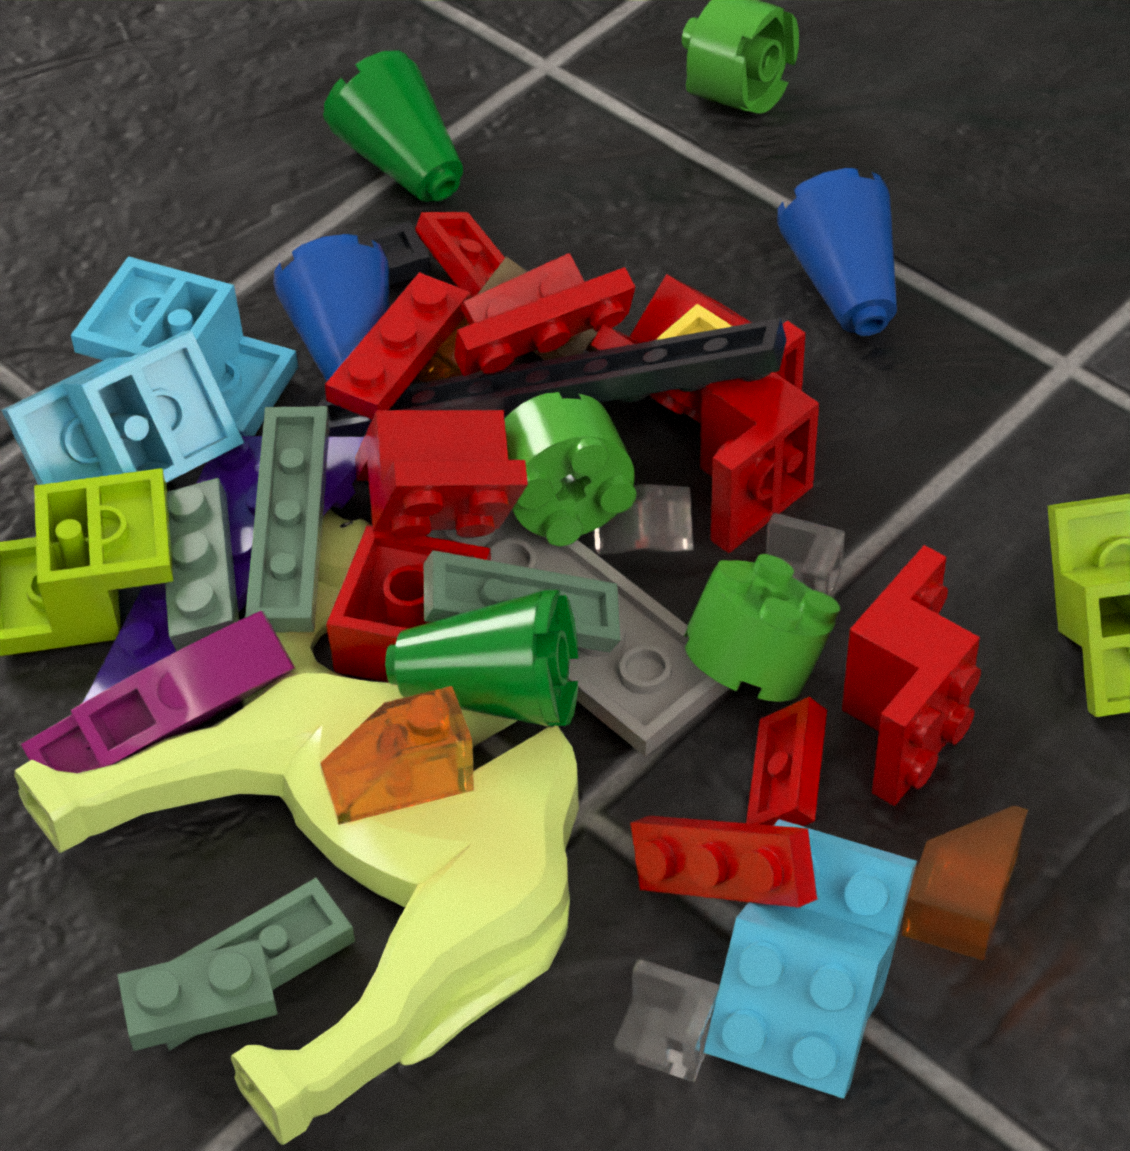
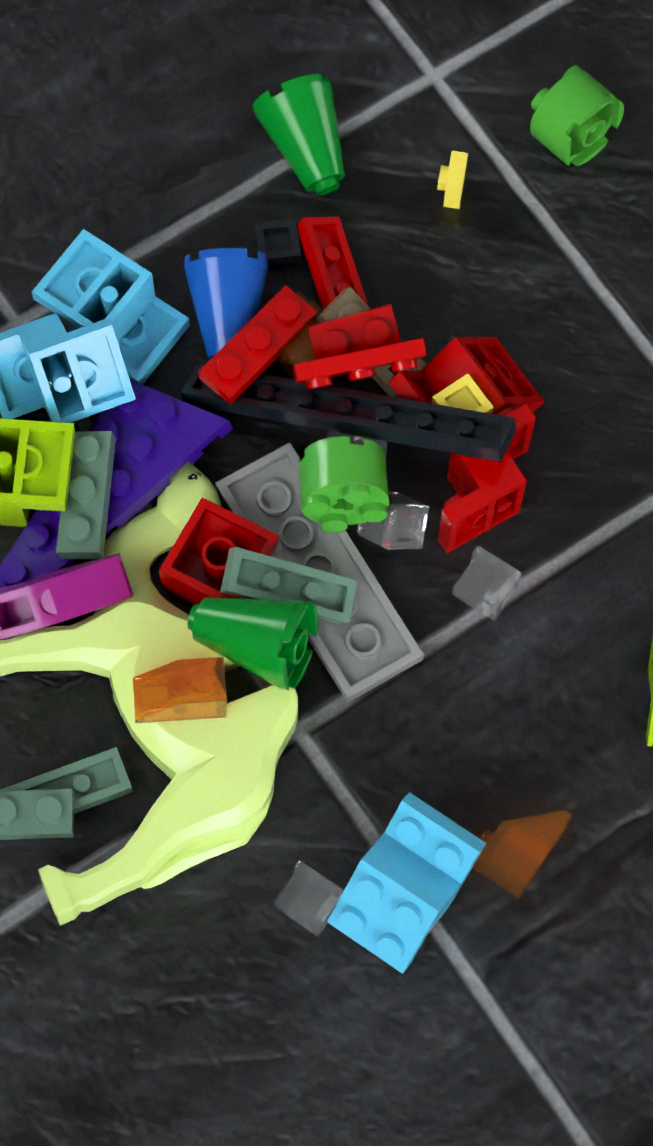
camera: 10 degrees right, 20 degrees up
(289, 517) = (152, 477): sand green plate -> none
(439, 472) = (256, 478): red bracket -> none
(604, 147) = (452, 179): none -> light yellow plate
(724, 860) = (368, 808): red plate -> none
(760, 627) = (442, 637): bright green brick -> none
(788, 765) = (433, 739): red plate -> none
(845, 246) = (598, 326): blue cone -> none
(911, 676) = (530, 697): red bracket -> none

